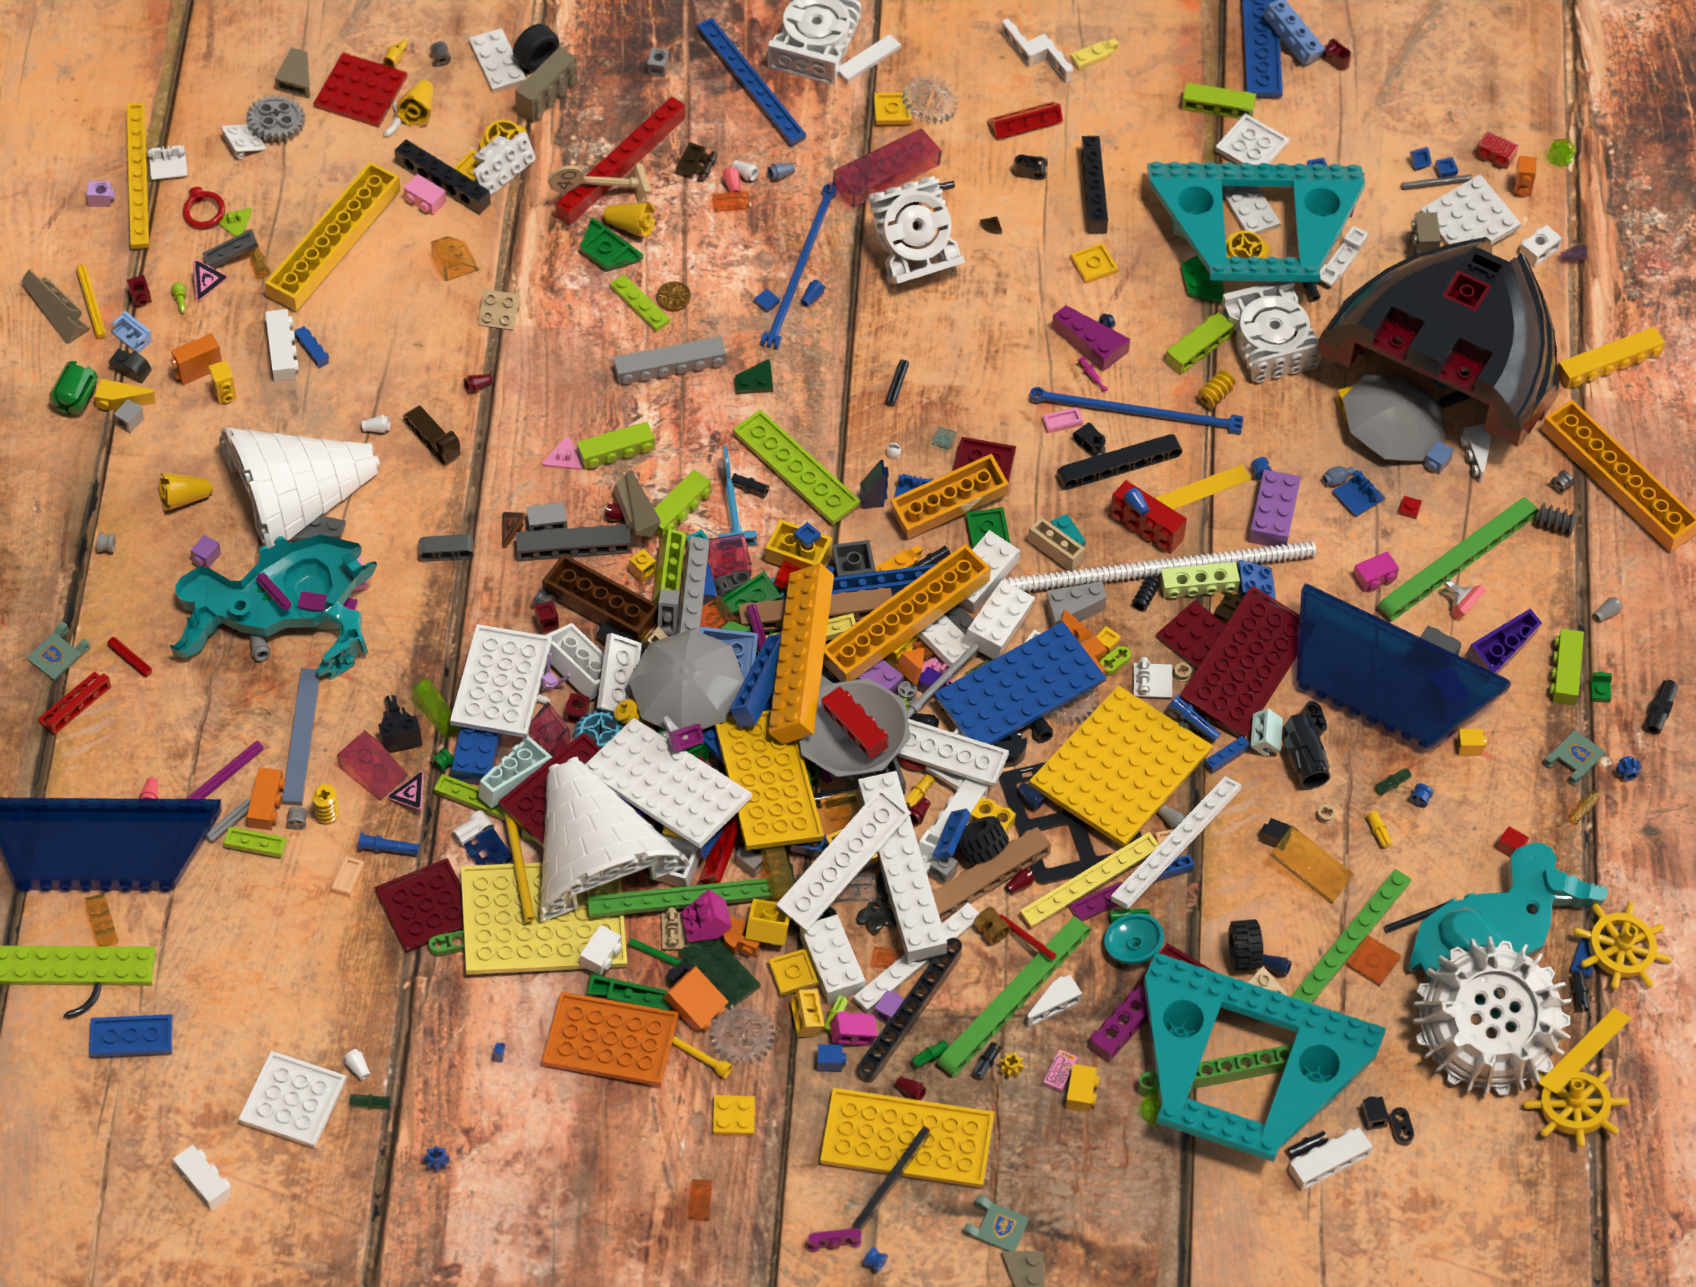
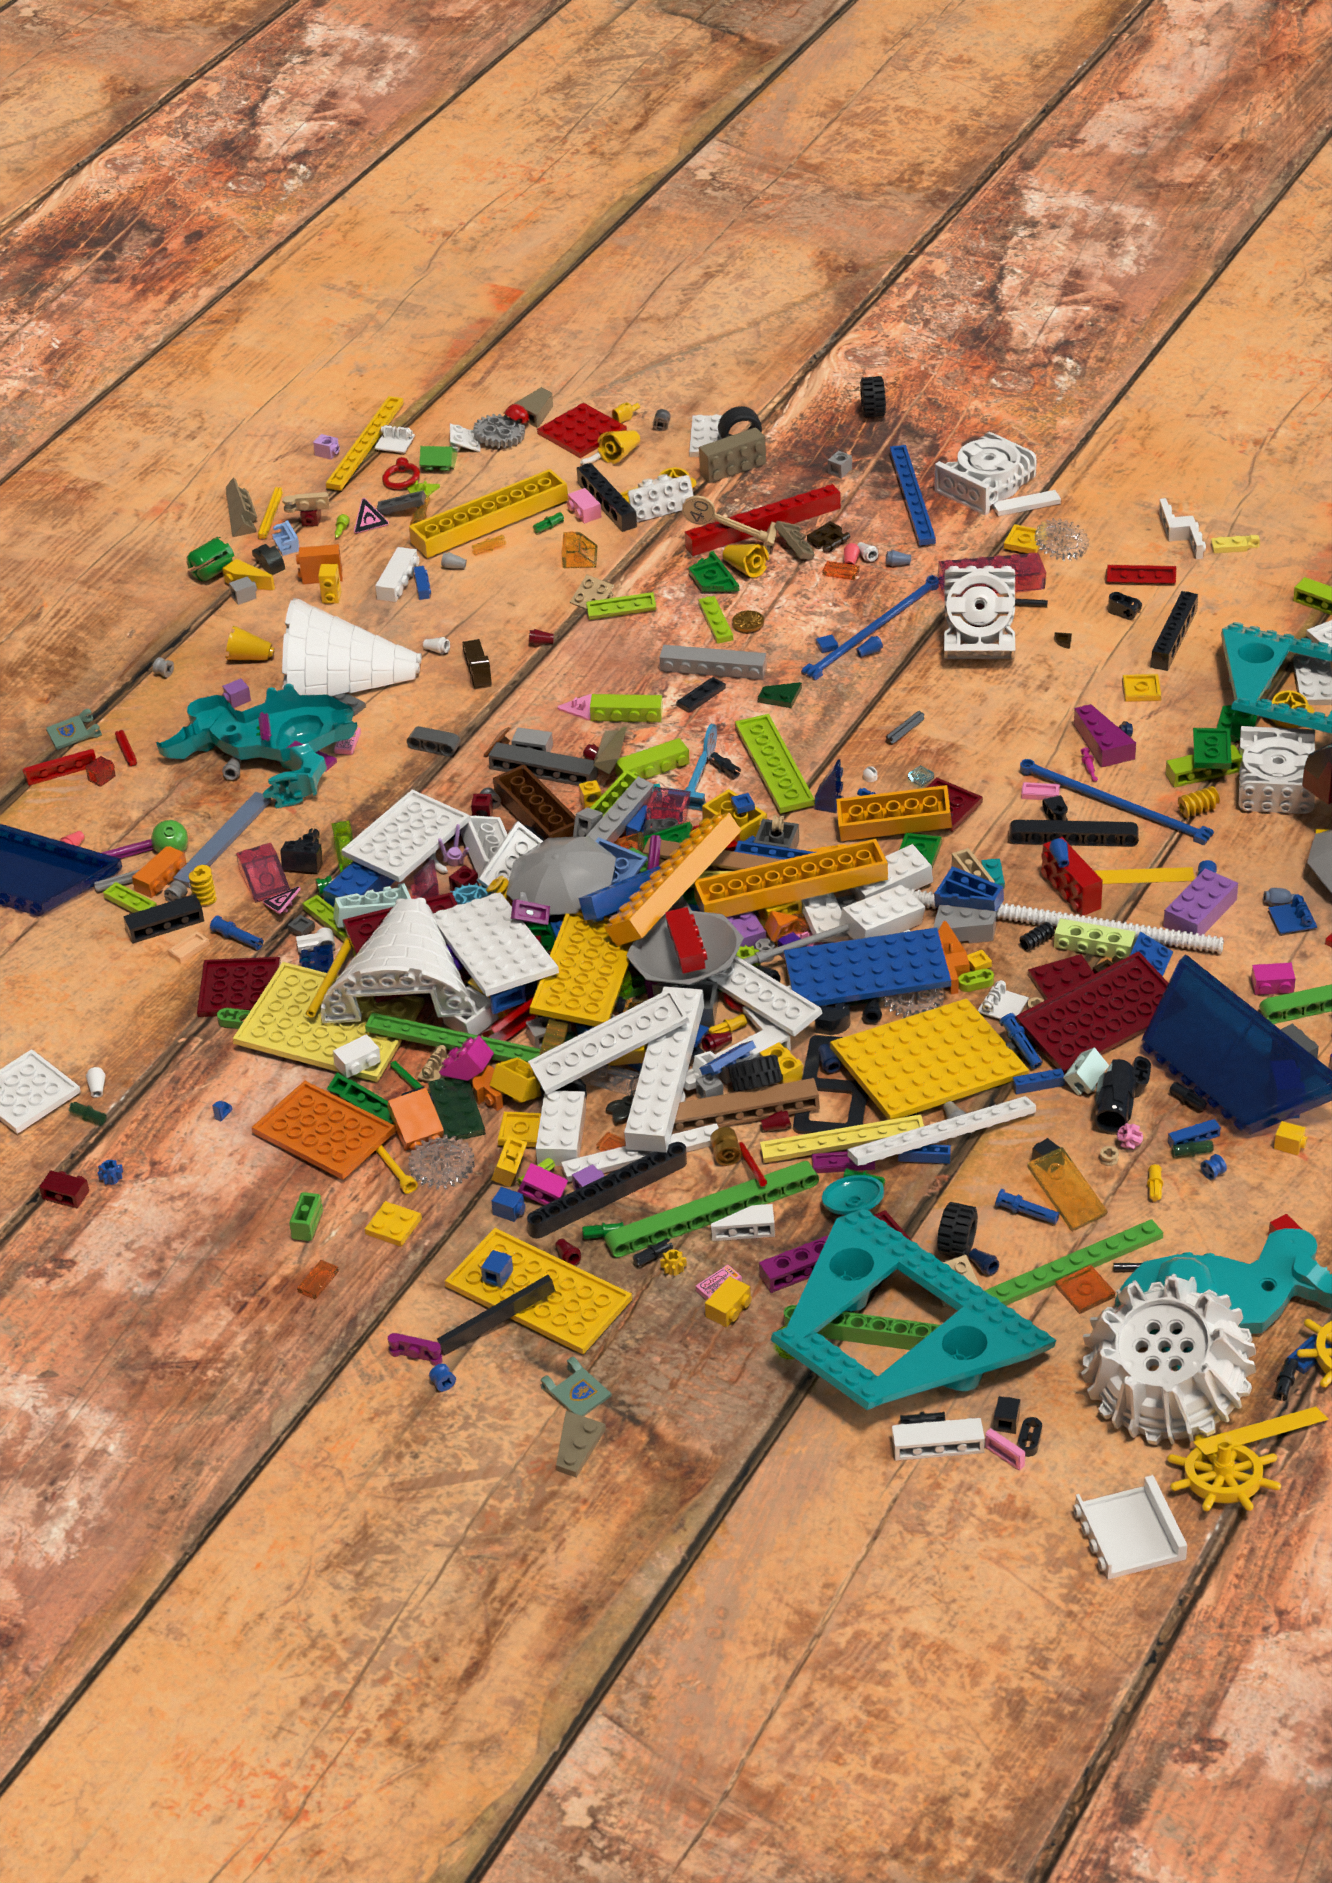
camera: 30 degrees right, 15 degrees down
(124, 695) = (100, 771): none -> clear red brick
(136, 283) = (306, 502): none -> tan hinge
(232, 175) = (437, 457): none -> bright green slope
(251, 755) = (170, 834): none -> bright green cylinder
(285, 91) = (517, 412): none -> red hair
(304, 853) = (163, 918): none -> black brick
(329, 309) = (453, 561): none -> light grey cone
(353, 275) = (488, 544): none -> clear yellow pin
(398, 227) = (548, 522): none -> green axle
(404, 1192) = (64, 1188): none -> dark red brick
(447, 815) = (301, 926): none -> dark grey plate
(537, 316) = (621, 605): none -> lime plate
(655, 1140) = (306, 1216): none -> bright green brick
(656, 169) = (795, 539): none -> dark tan wing
(677, 403) = (701, 694): none -> black tile
(854, 549) = (777, 823): none -> tan bush
(865, 1132) = (497, 1268): none -> blue brick
(1070, 570) = (968, 891): none -> blue wedge
(1204, 325) = (1212, 748): none -> green plate
(1275, 894) = (1017, 1204): none -> blue pin
(1336, 788) = (1130, 1136): none -> bright pink gear
(1363, 726) = (1188, 1096): none -> black axle
(1387, 765) = (1195, 1133): none -> blue piece
(1390, 1148) = (1005, 1449): none -> bright pink tile
(1527, 1184) = (1131, 1530): none -> white panel

